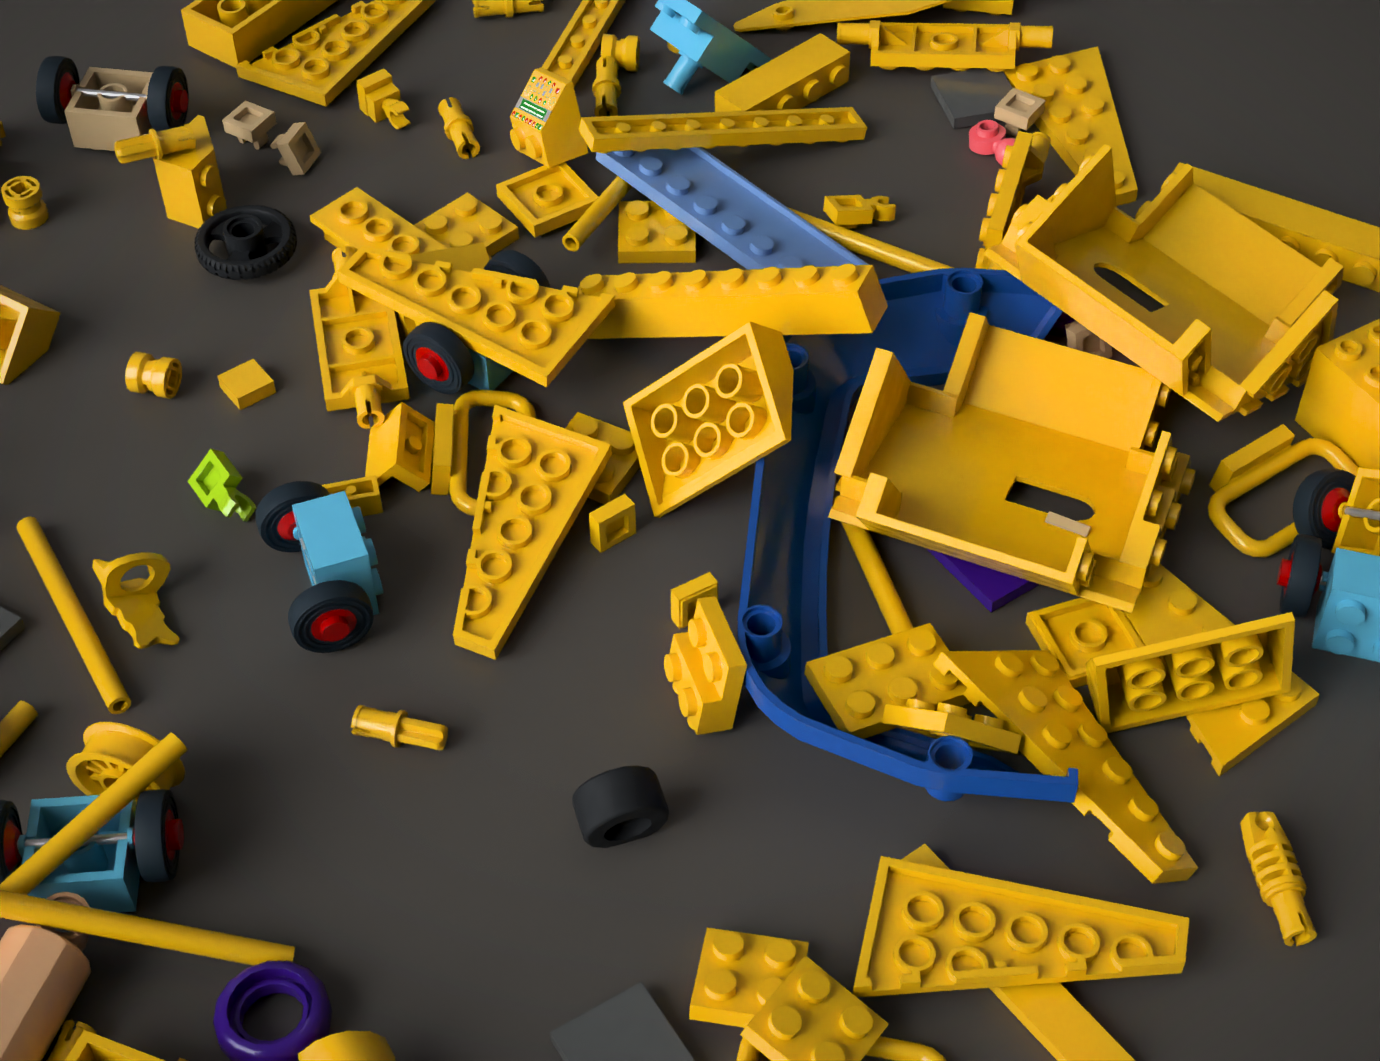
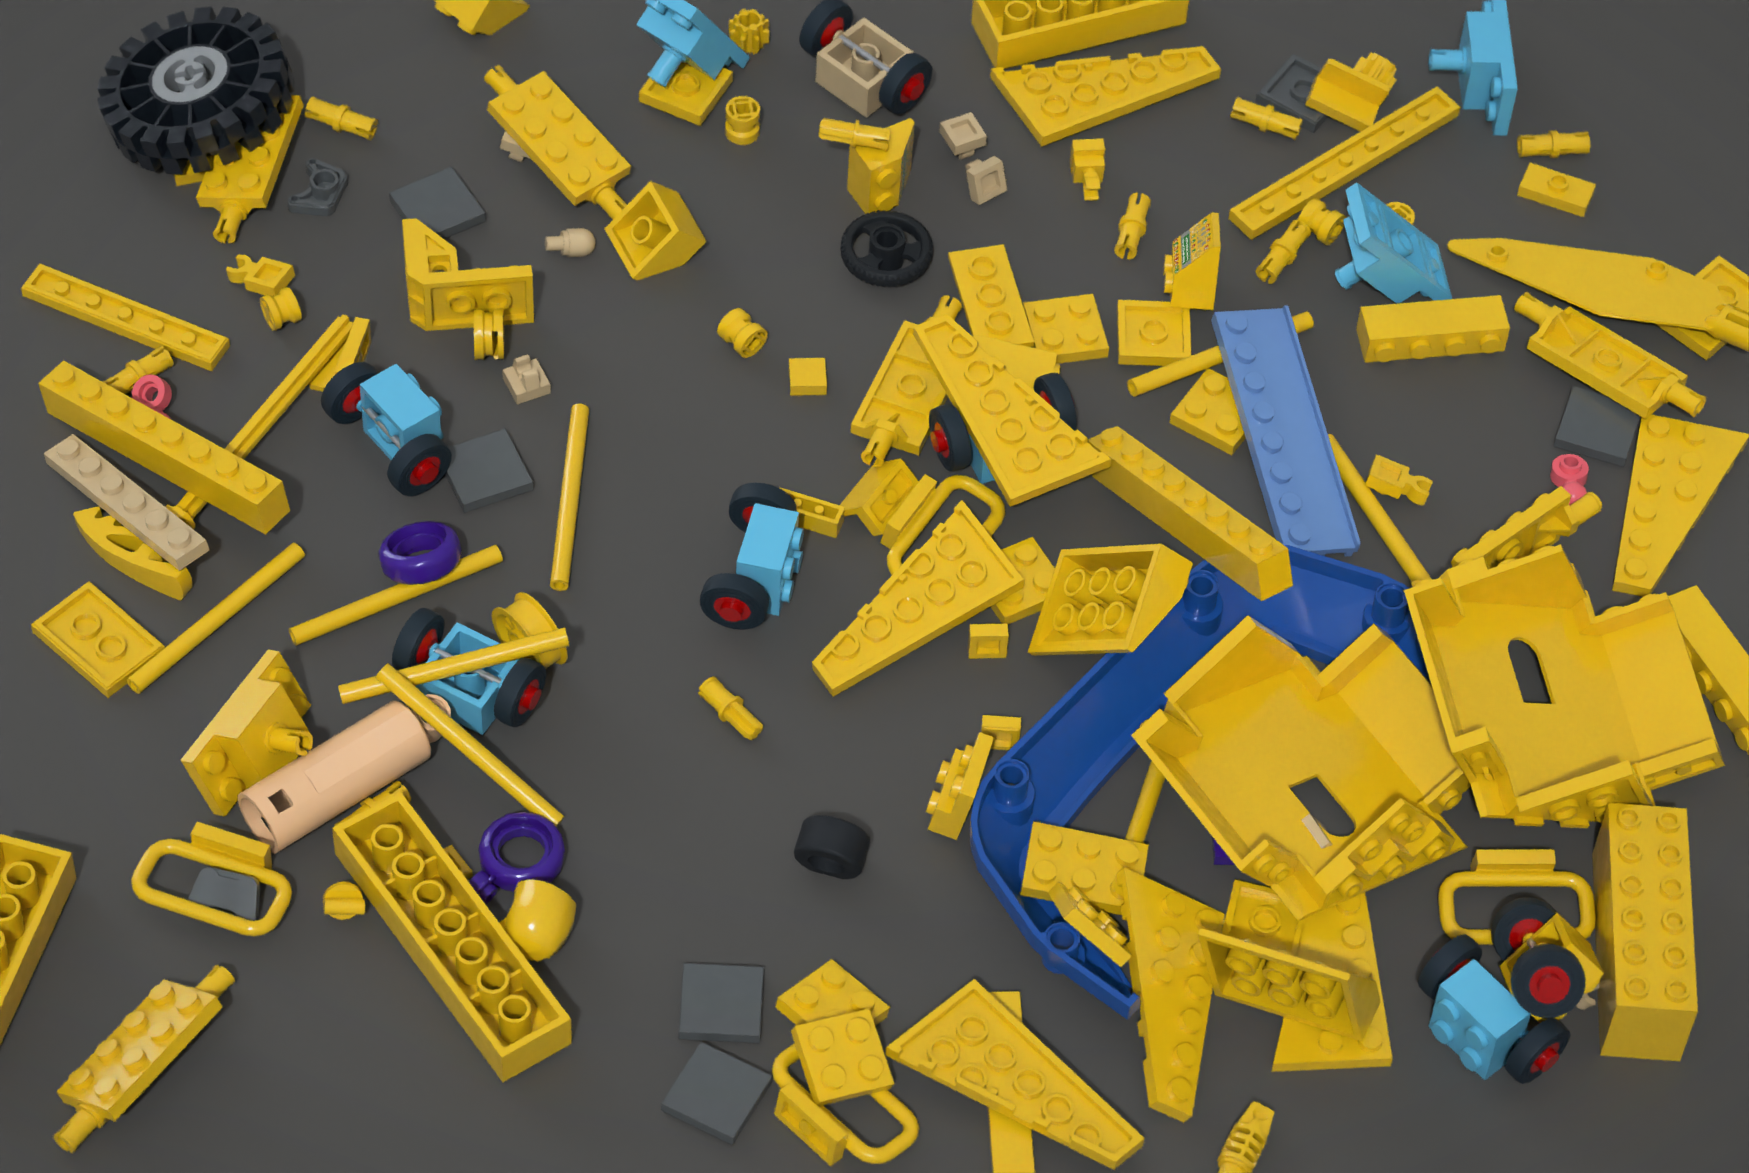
camera: 30 degrees right, 5 degrees up
(136, 600) = (617, 512): yellow hair -> none
(216, 486) = (728, 451): lime plate -> none
(715, 129) = (1334, 350): yellow plate -> none
(1019, 110) = (1613, 461): tan tile -> none

